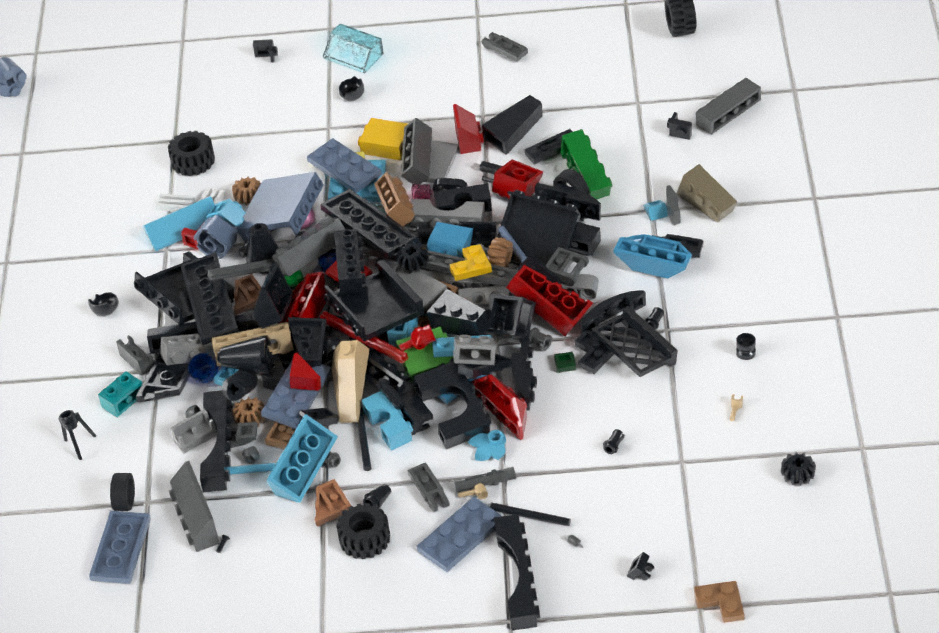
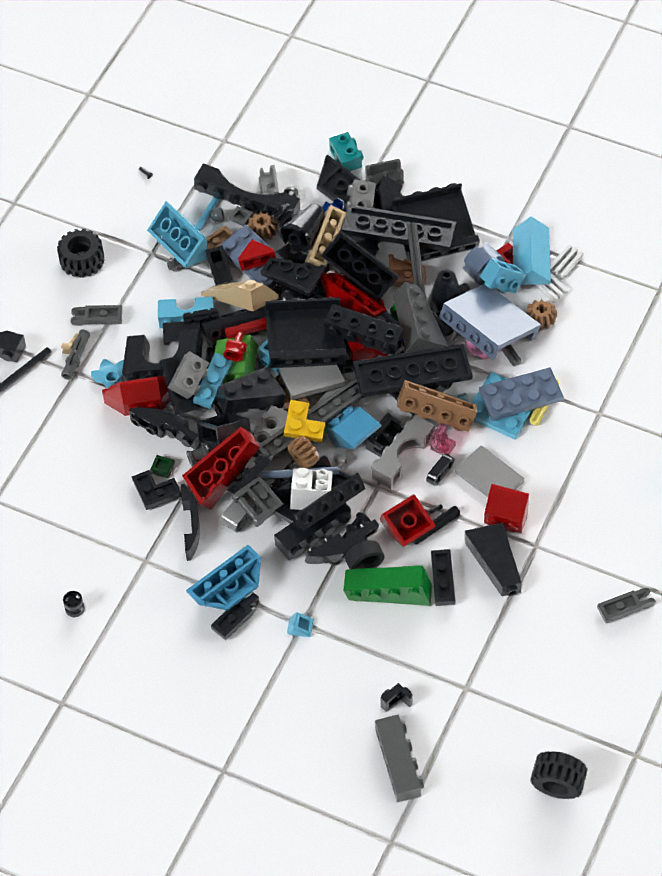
camera: 115 degrees right, 10 degrees up
(69, 421) = (323, 100): black plant -> none
(104, 304) = (460, 169): black hair -> none
(120, 547) = (186, 108): sand blue plate -> none
(122, 491) = (232, 110): black tyre -> none
(191, 153) = (624, 276): black tyre -> none
(193, 508) = (180, 159): dark grey slope -> none
(329, 502) = (130, 247): nougat wing -> none
(351, 88) = (637, 445): black hair -> none
(363, 442) = (176, 292): black bar -> none
(377, 496) = (111, 277): black cone -> none
(382, 139) = (543, 445): yellow brick -> none
(412, 256) = (338, 380): black gear -> none
(416, 152) = (494, 451): dark grey brick -> none
(454, 198) = (418, 456): black arch -> none
(459, 534) = (37, 319): sand blue plate -> none
(482, 233) = (362, 461): black hinge -> none
(534, 231) = (309, 486): none -> white slope
(611, 445) = (44, 454): black pin -> none
(646, 336) = (137, 535): black fence -> none
(655, 317) = (156, 548): black pin -> none
(672, 205) = (297, 637): dark grey slope -> none
(706, 194) = (279, 666): dark tan wedge -> none
(735, 404) = (18, 565): tan hand -> none

